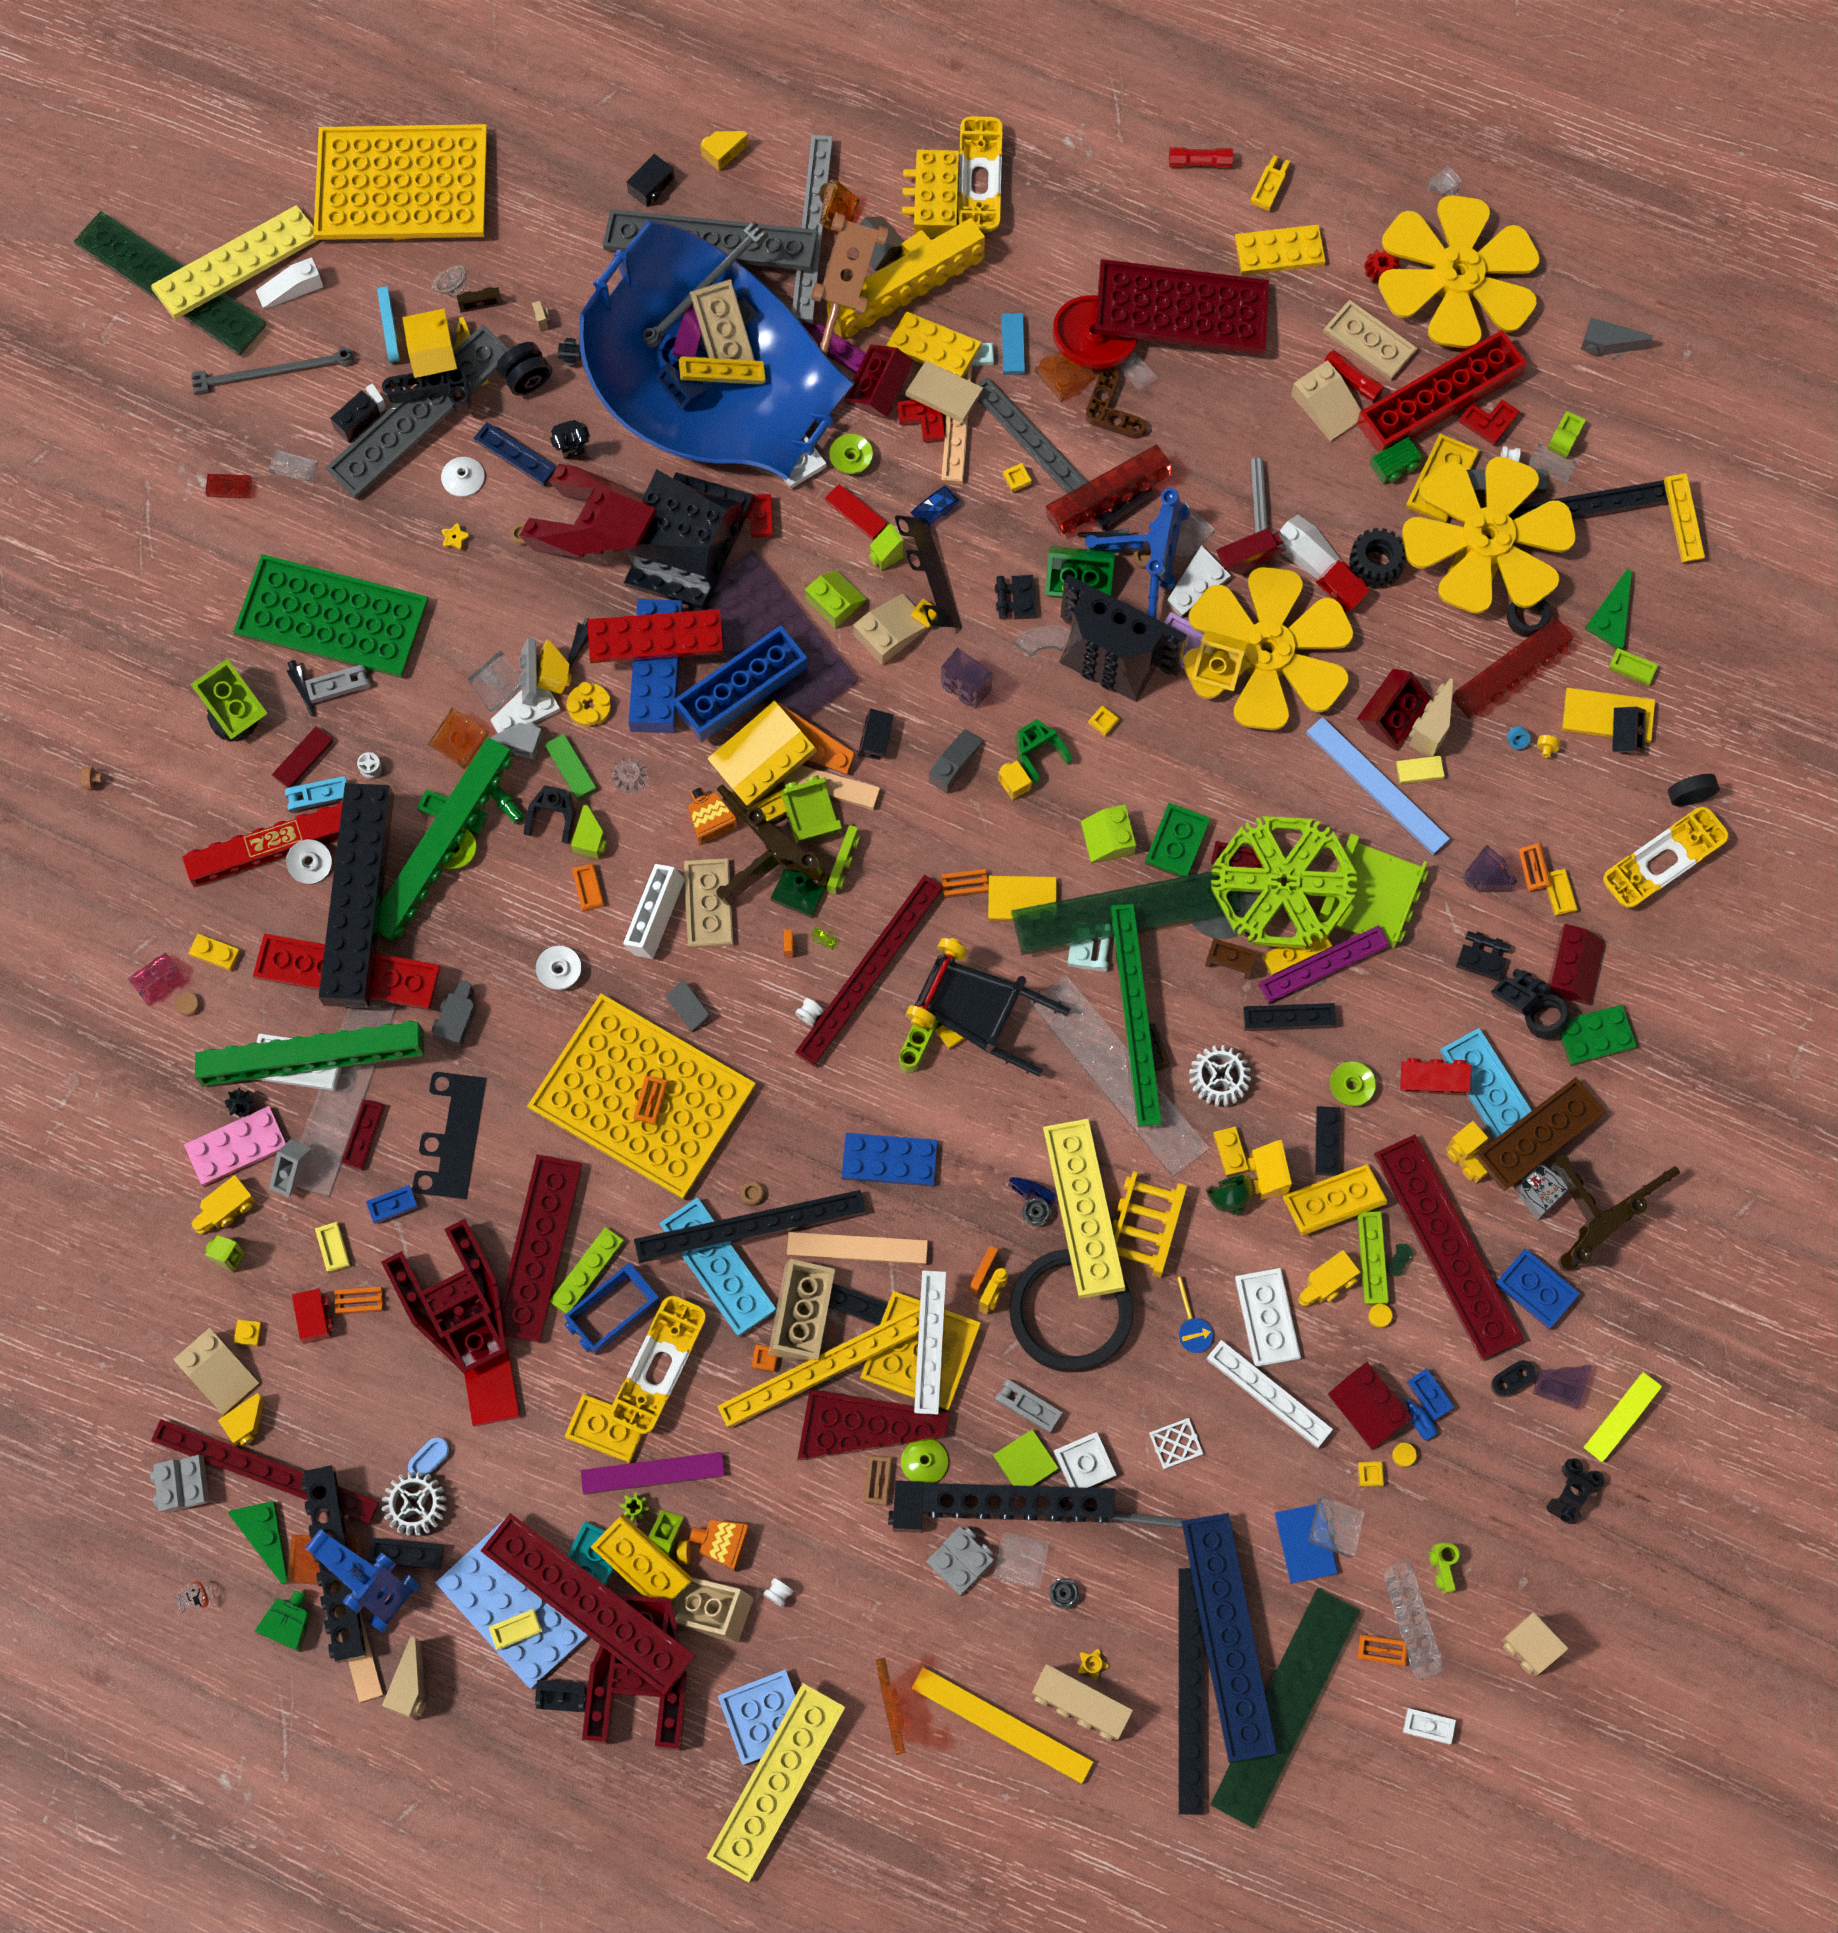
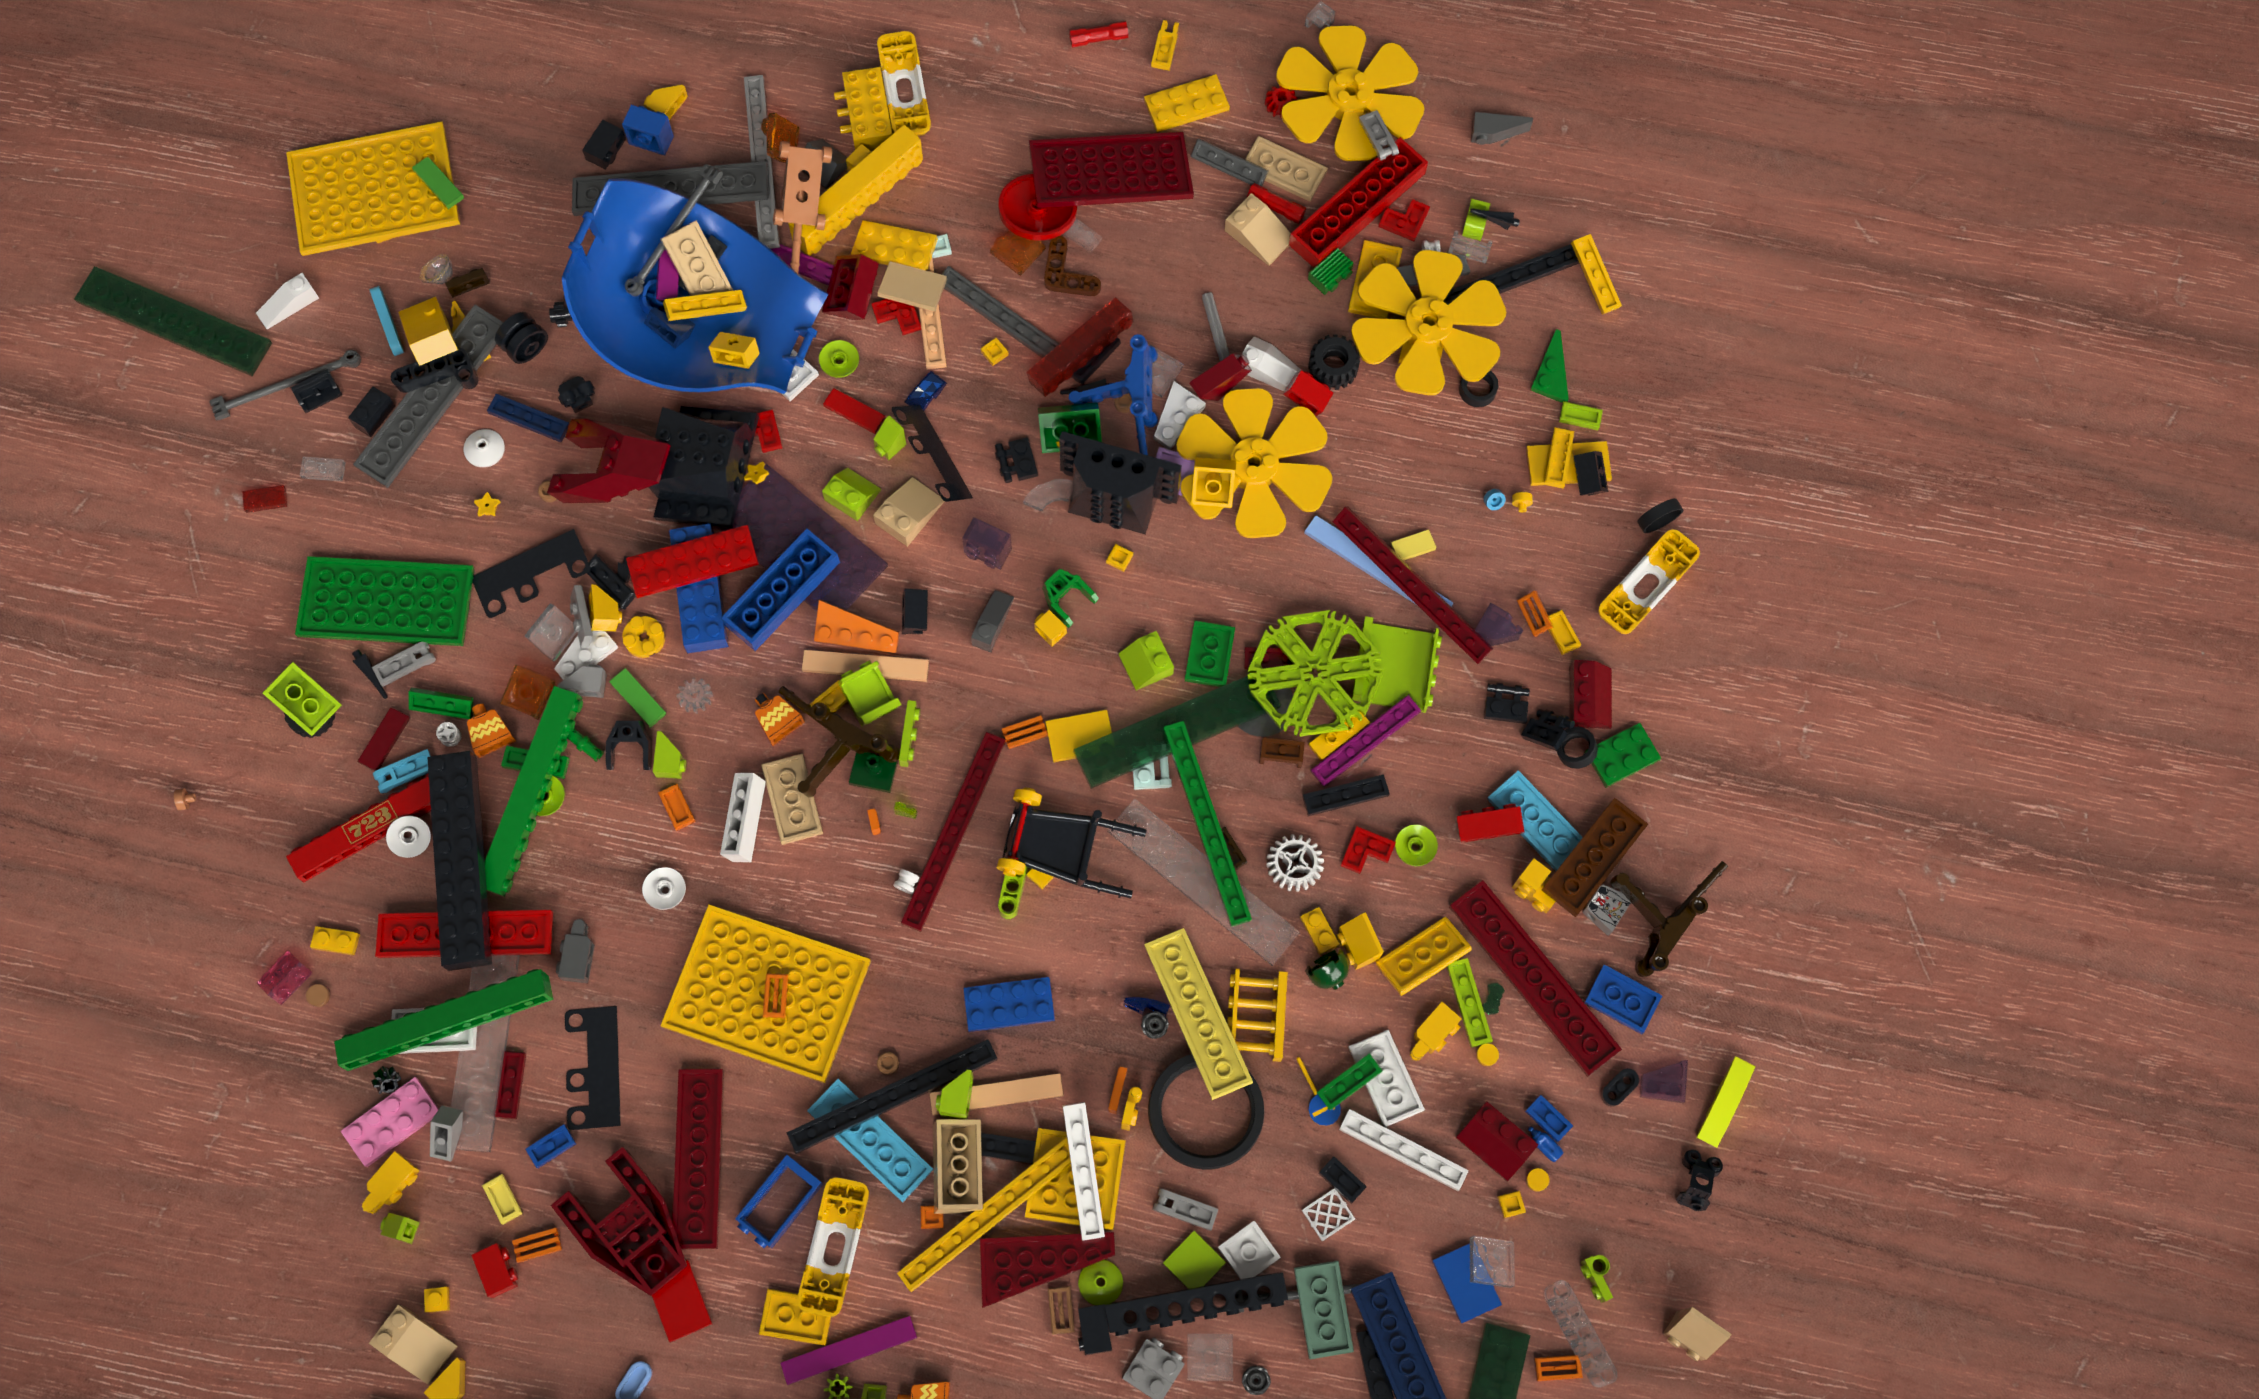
camera: 15 degrees left, 0 degrees up
(234, 262) = (230, 291): light yellow plate -> none
(302, 384) = (316, 391): none -> black hinge
(367, 732) = (440, 703): none -> green plate
(376, 397) = (385, 388): white tile -> none
(410, 770) = (488, 731): none -> orange torso
(469, 189) = (438, 182): none -> bright green tile
(483, 607) = (523, 567): none -> black piece
(541, 315) = (528, 286): tan plate -> none
(565, 640) = (610, 581): none -> black tile
(586, 1271) = (748, 1170): lime plate -> none
(688, 1006) = (792, 899): dark grey slope -> none
(699, 173) = (648, 129): none -> blue brick
(740, 562) = (760, 476): none -> yellow plate
(743, 423) = (734, 350): none -> yellow brick
(762, 754) = (814, 651): yellow slope -> none
(814, 1240) = (956, 1097): none -> lime slope
(919, 613) = (933, 494): yellow tile -> none
(1013, 344) = (965, 231): dark azure tile -> none
(1149, 1537) = (1323, 1309): none -> sand green tile
(1198, 1411) = (1342, 1180): none -> black plate
(1227, 1312) = (1349, 1082): none -> green plate
(1298, 1071) = (1366, 844): none -> red plate
(1311, 323) = (1229, 163): none -> dark grey tile
(1327, 1141) = (1404, 902): black plate -> none
(1394, 708) = (1379, 494): dark red slope -> none
(1409, 810) = (1412, 585): none -> dark red plate
(1433, 726) = (1418, 500): tan slope -> none
(1478, 323) = (1378, 135): none -> light grey plate
(1512, 668) = (1475, 437): clear red brick -> none
(1595, 439) = (1503, 219): none -> black piece
(1598, 707) = (1559, 458): none -> yellow plate

